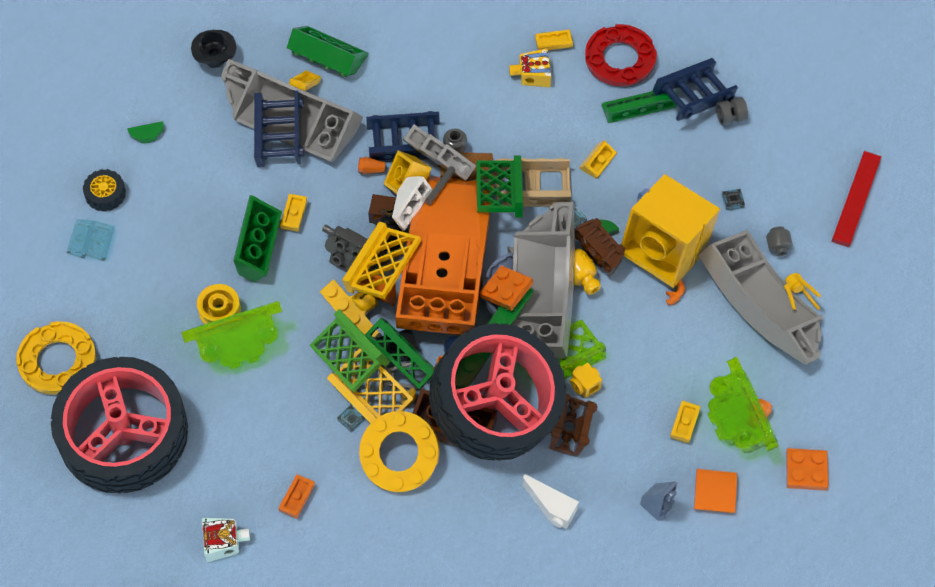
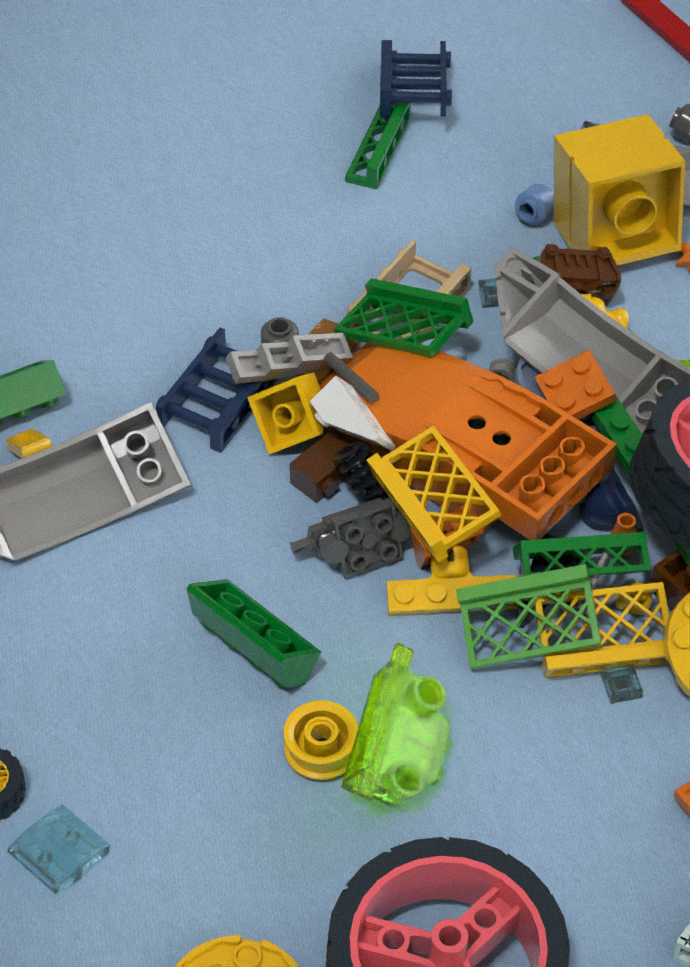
camera: 55 degrees left, 10 degrees down
(262, 121) = (78, 541): dark blue fence -> none
(293, 212) = (226, 564): yellow plate -> none
(368, 166) = (229, 451): orange cone -> none
(533, 68) = (236, 208): torso -> none
(554, 40) = (208, 169): yellow plate -> none
(598, 159) = (424, 224): yellow slope -> none
(620, 34) = (290, 93): red plate -> none
(731, 111) = (470, 67): dark grey wheel -> none

